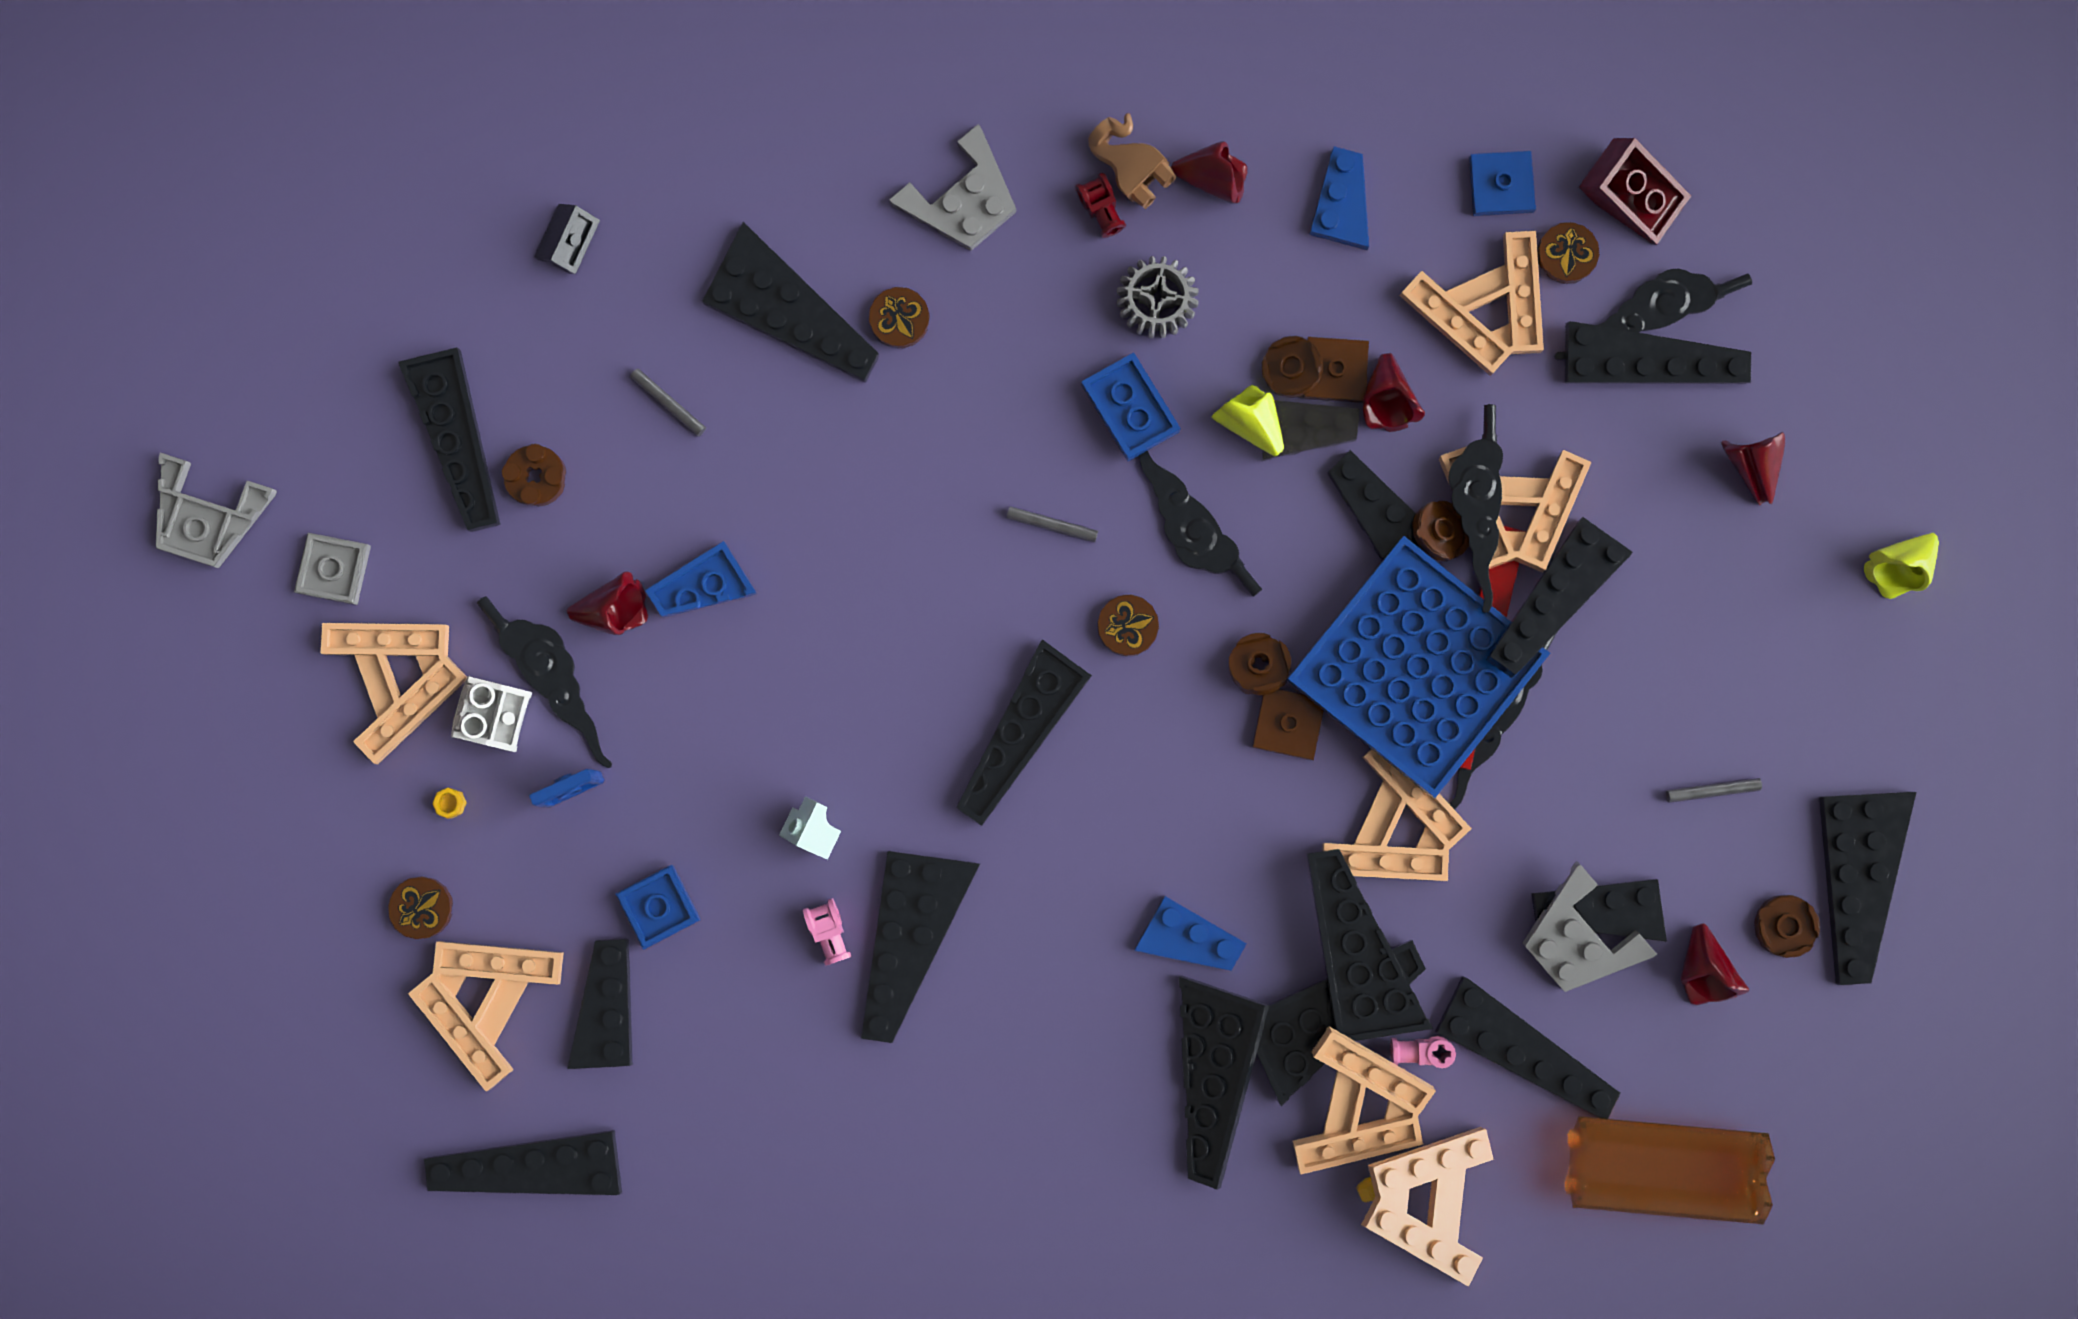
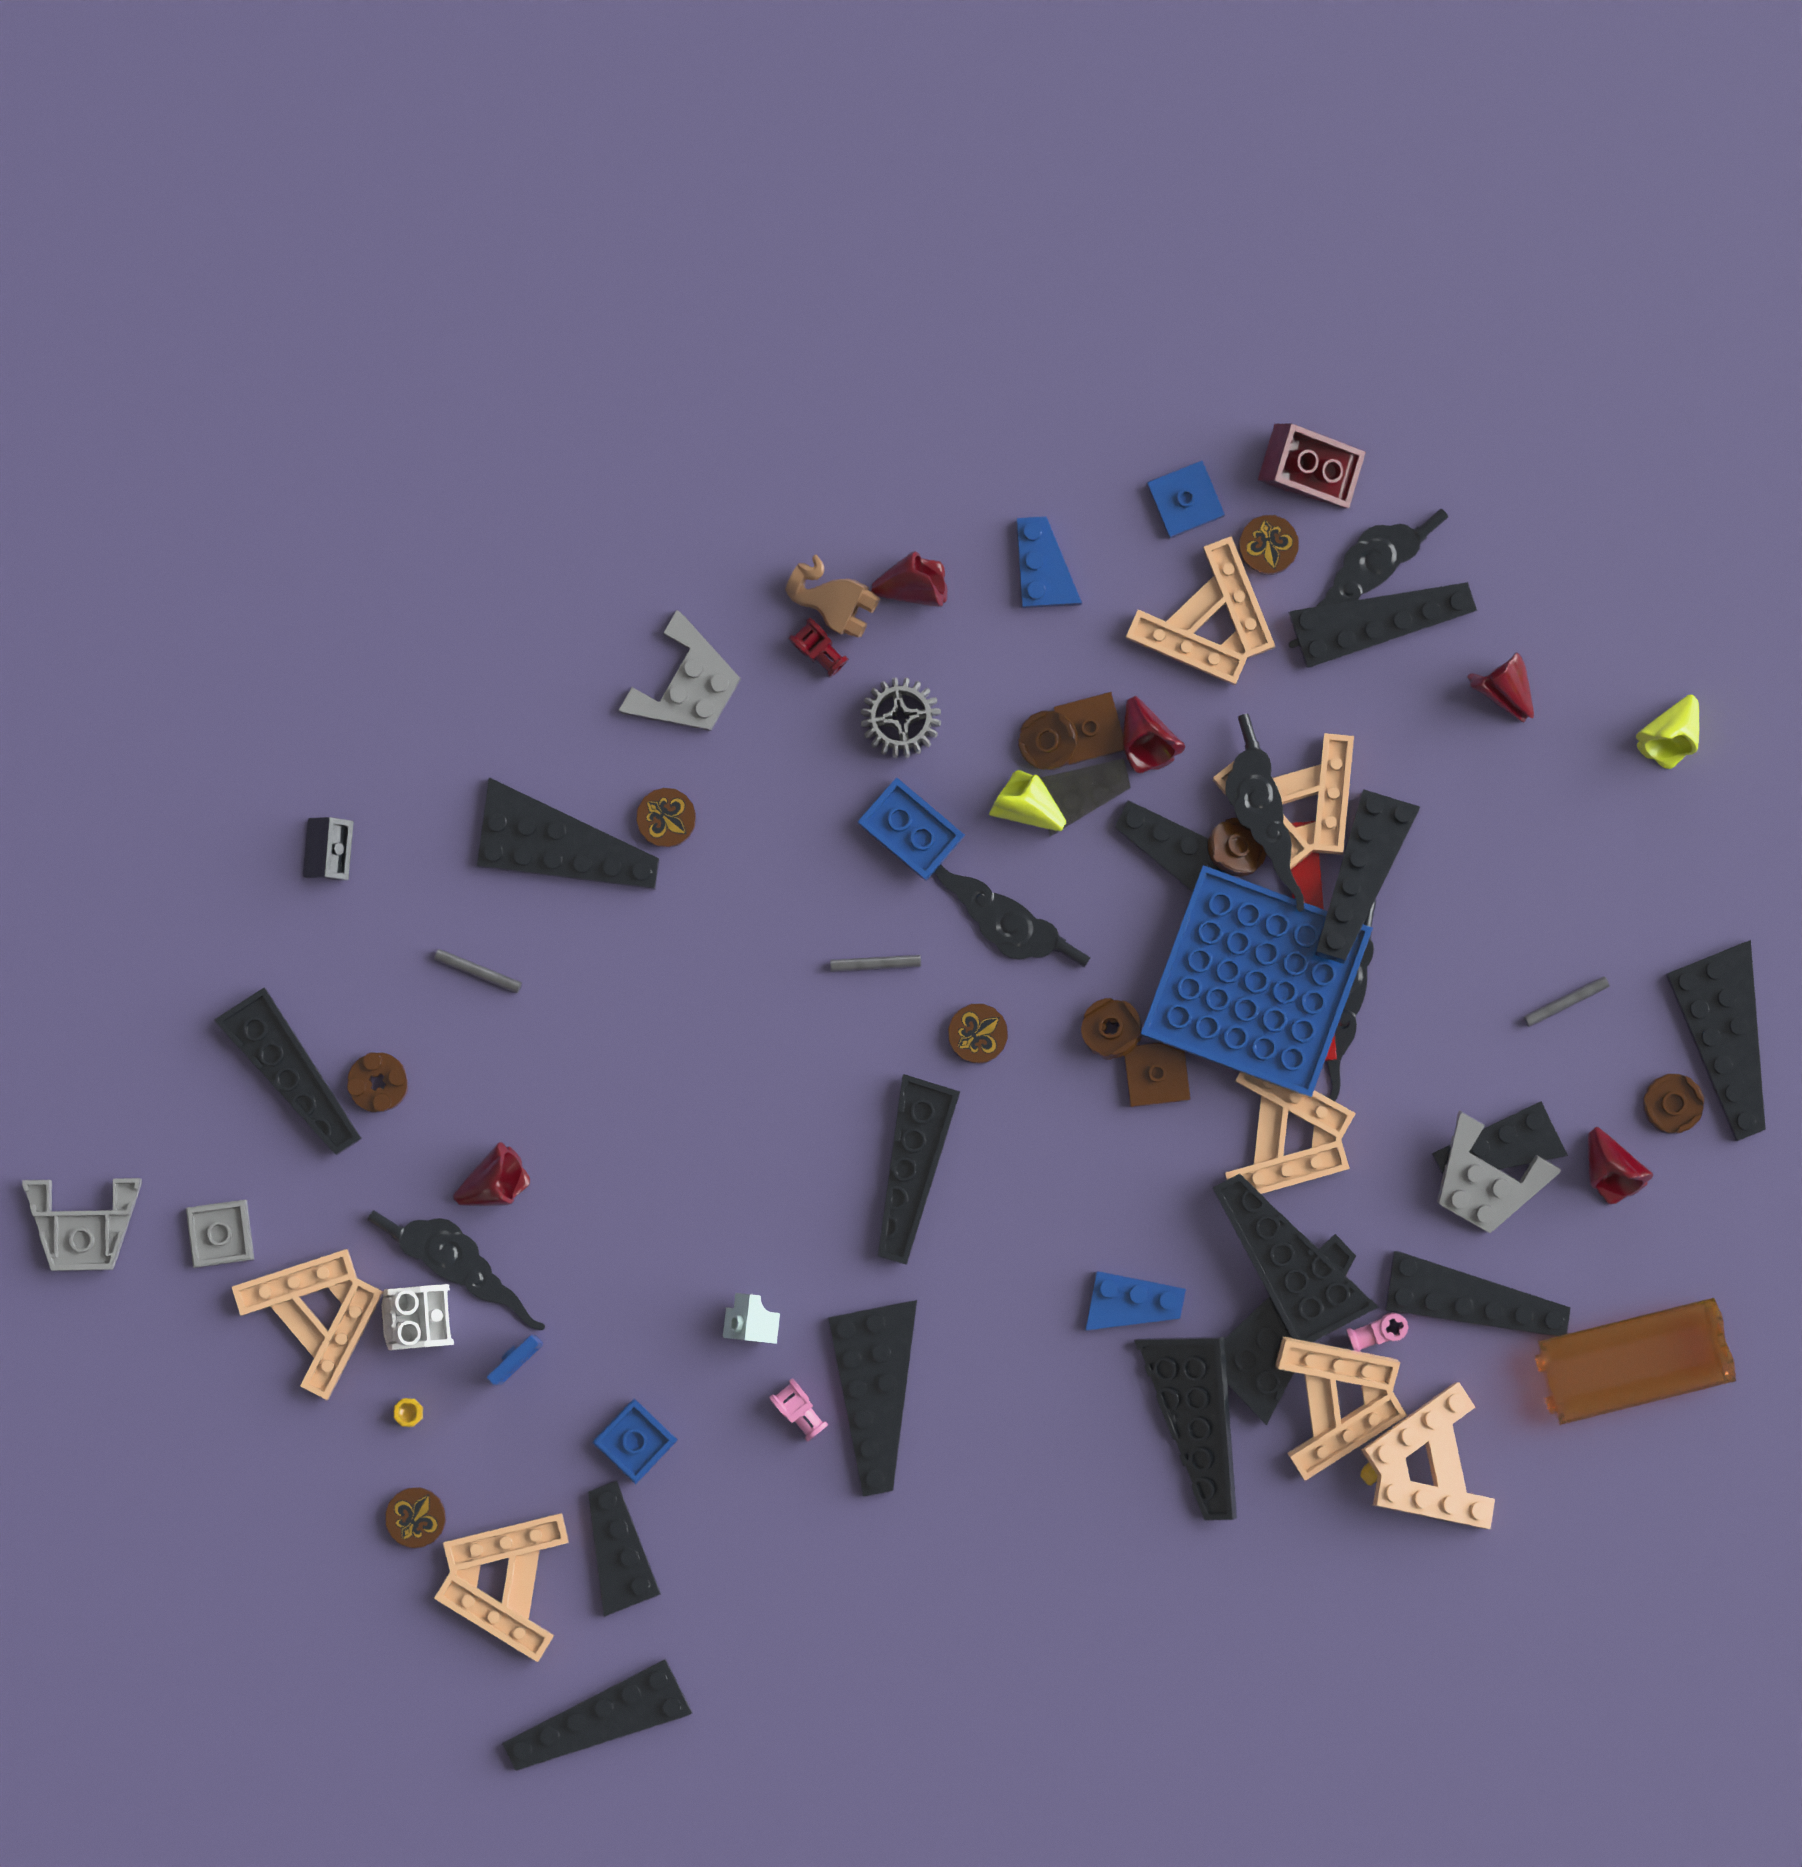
camera: 15 degrees left, 0 degrees up
(701, 583) = (570, 1129): blue wing -> none

